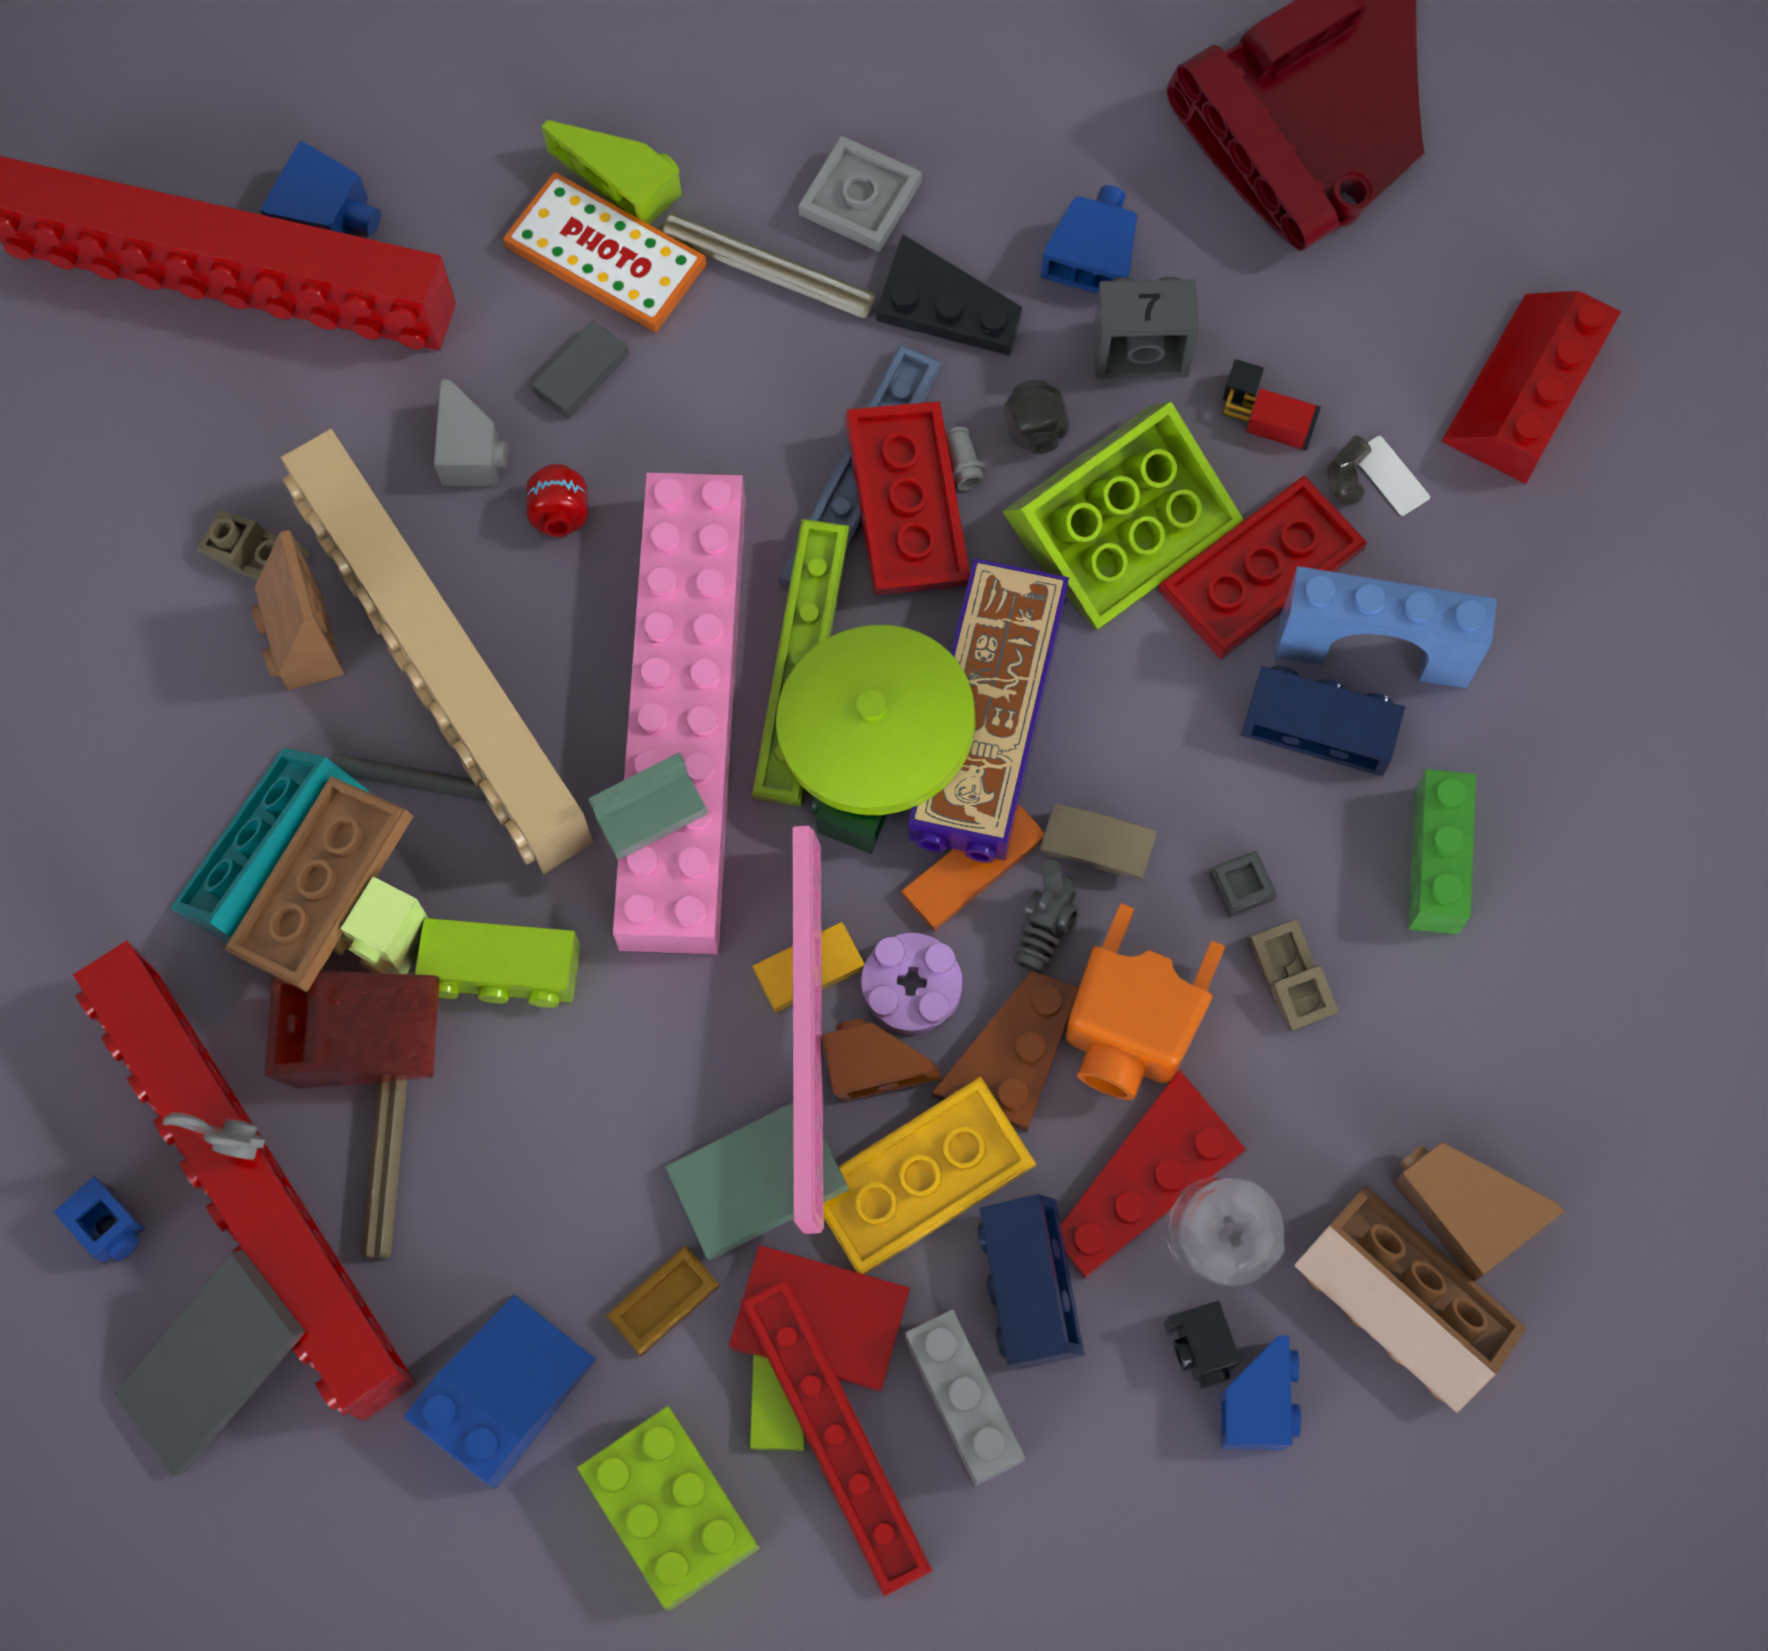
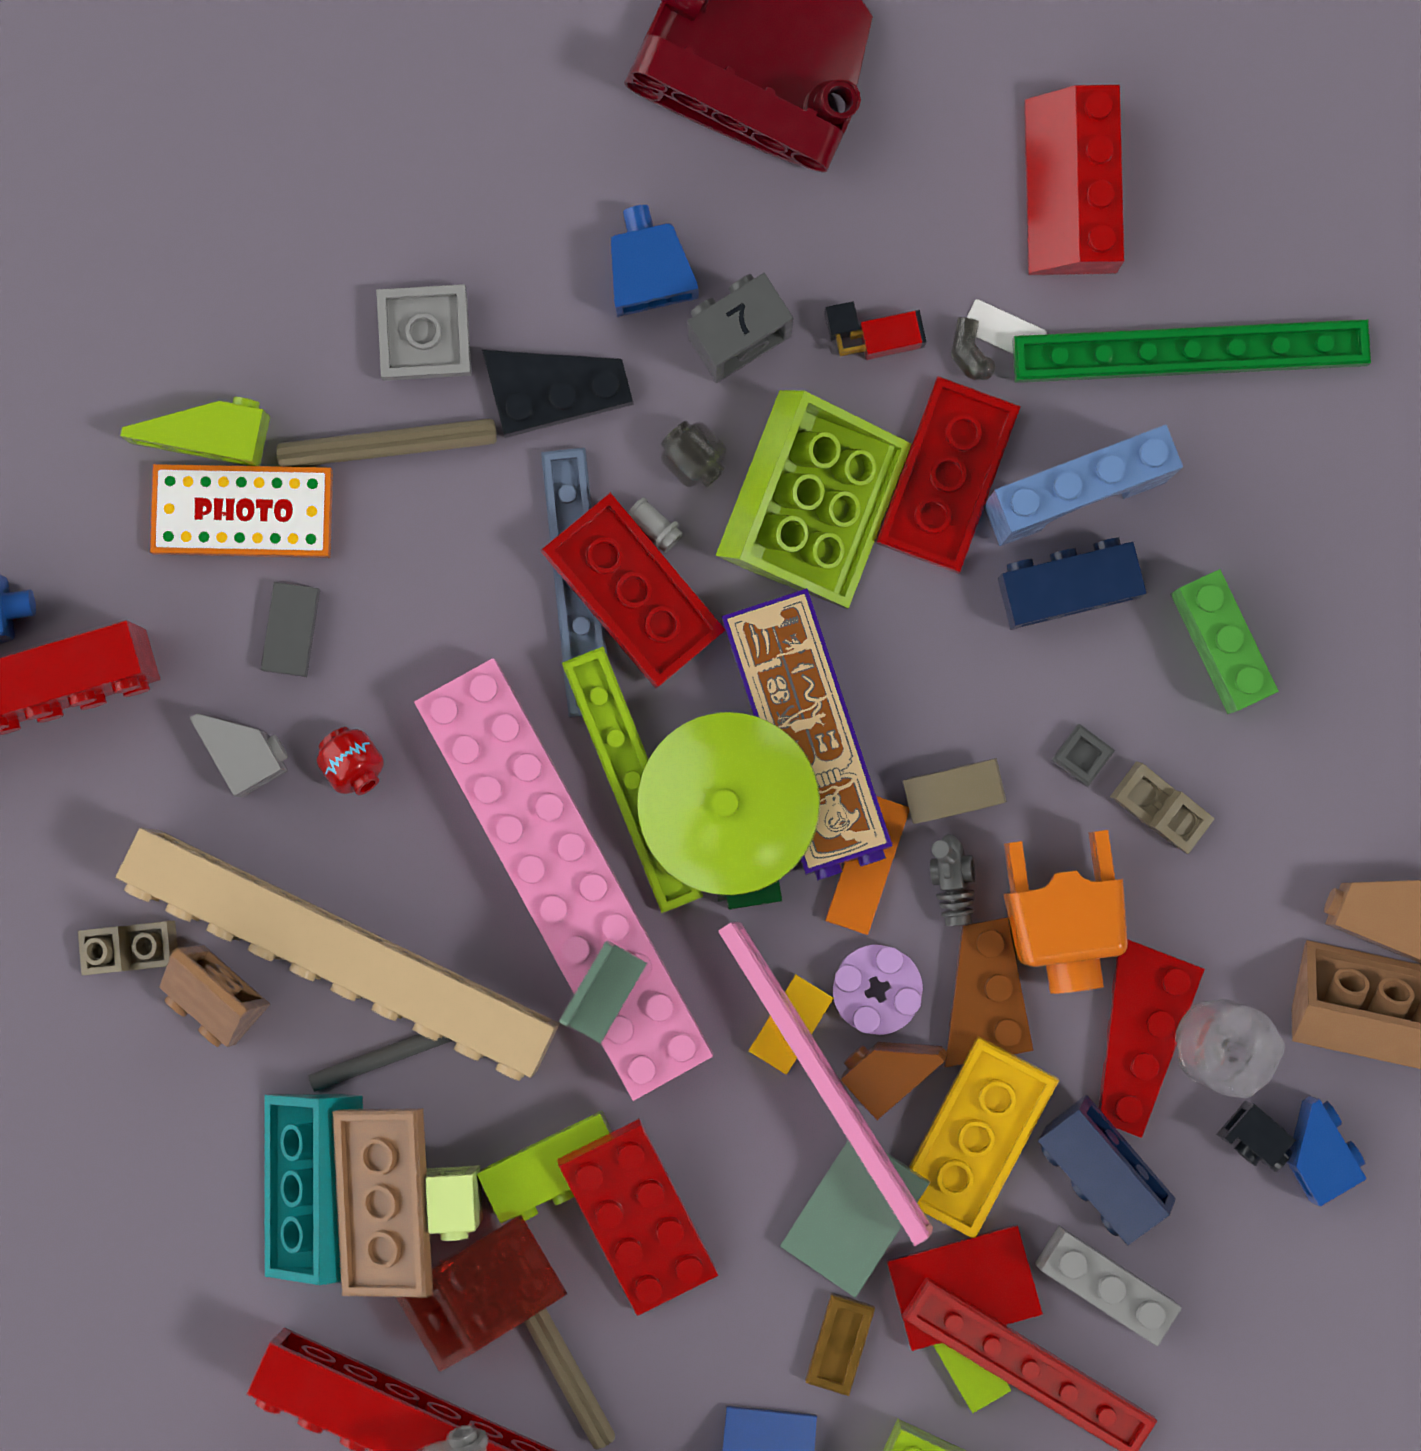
camera: 30 degrees left, 15 degrees up
(546, 1051) = (637, 1217): none -> red plate
(1562, 585) = (1191, 351): none -> green tile

